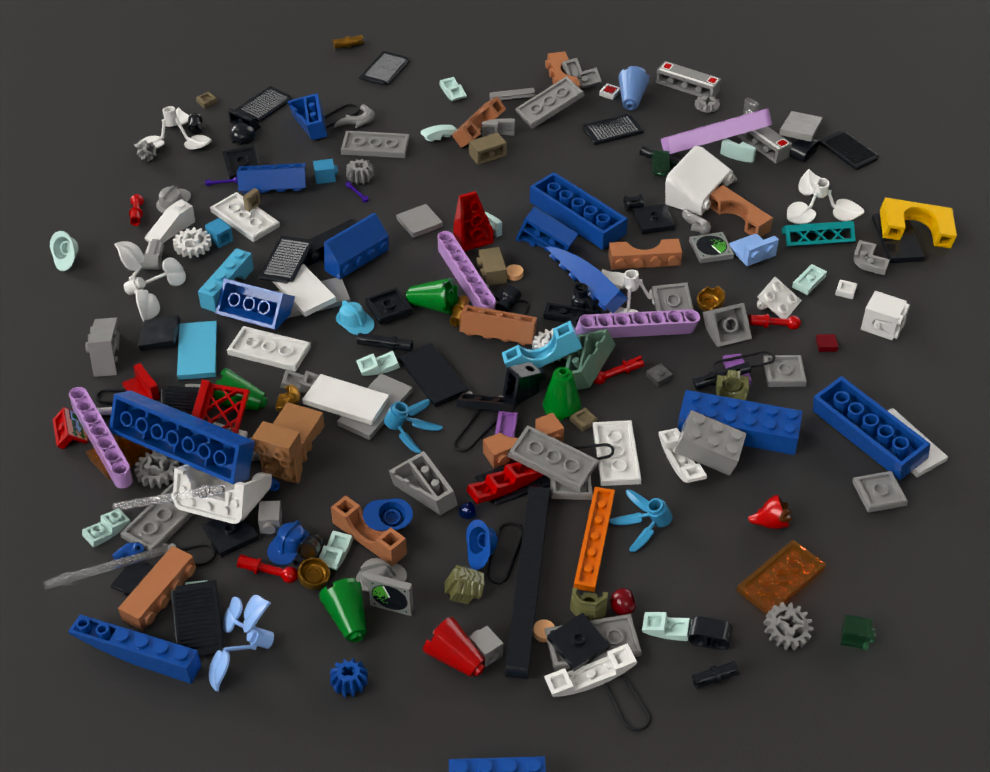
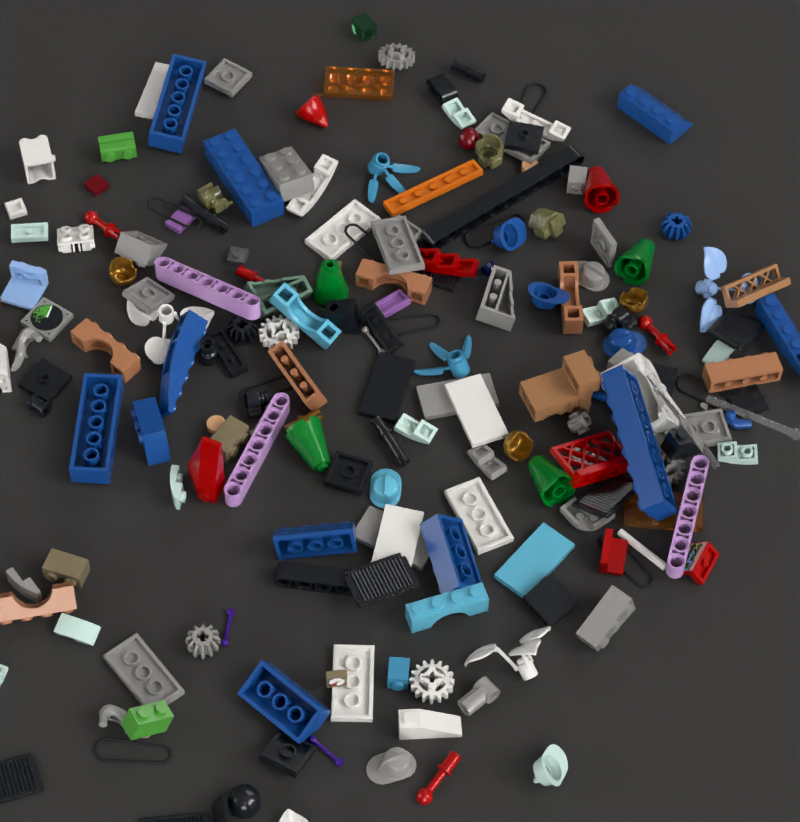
camera: 135 degrees left, 10 degrees up
(151, 476) = (679, 445): none -> black slope
(208, 659) = (754, 291): none -> medium nougat fence
(309, 115) = (163, 753): blue wedge -> none
(325, 171) = (231, 669): dark azure brick -> none
(338, 117) = (147, 720): none -> bright green brick
(419, 220) = (219, 543): light grey tile -> none
(785, 371) = (154, 186): light grey tile -> none
(858, 369) = (117, 147): none -> bright green brick

